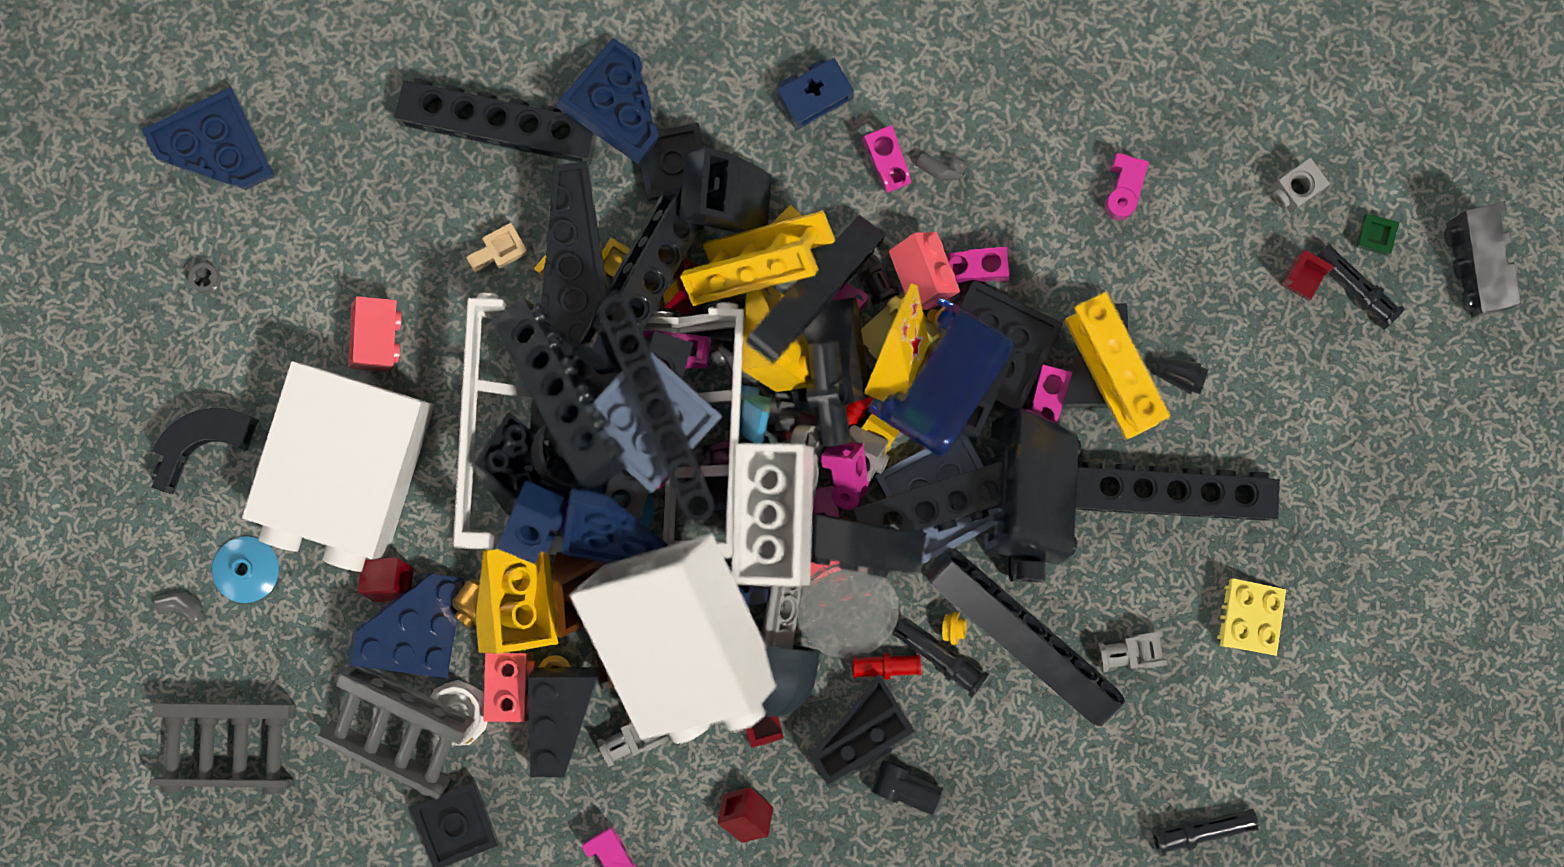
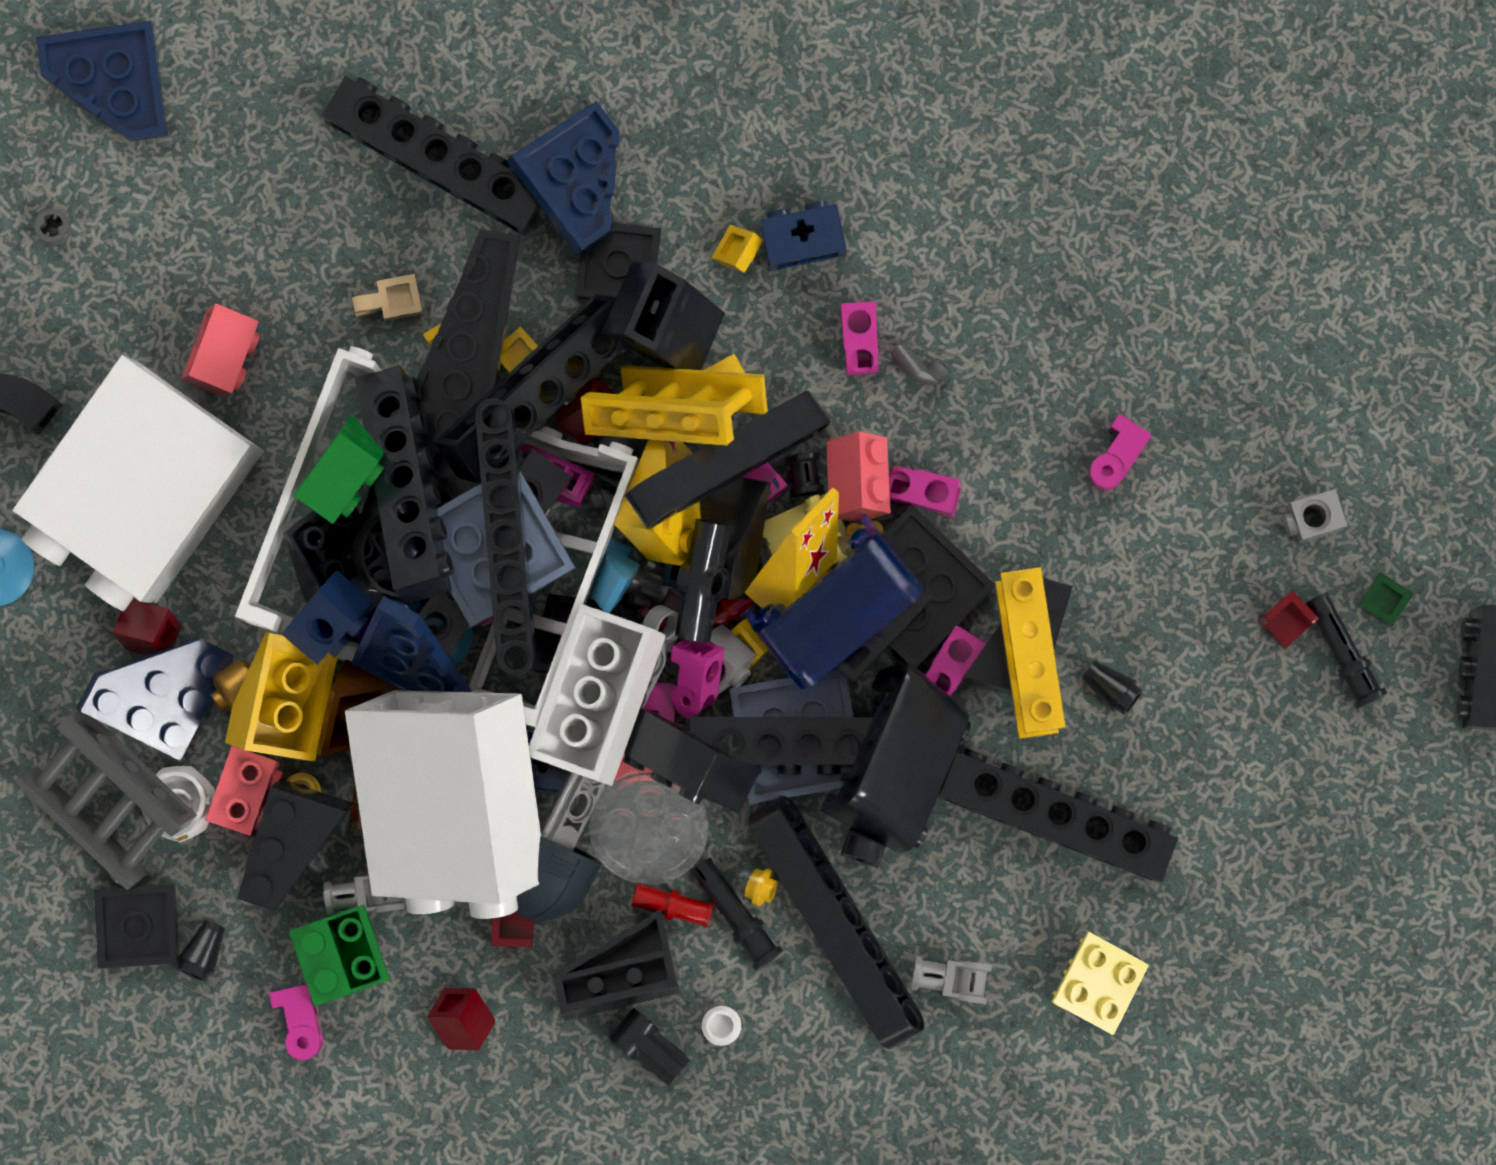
camera: 15 degrees right, 0 degrees up
(503, 398) = (341, 471): none -> green slope
(515, 829) = (202, 951): none -> black cone
(629, 796) = (339, 955): none -> green slope
(765, 119) = (737, 248): none -> yellow plate
(958, 751) = (721, 1025): none -> white plate

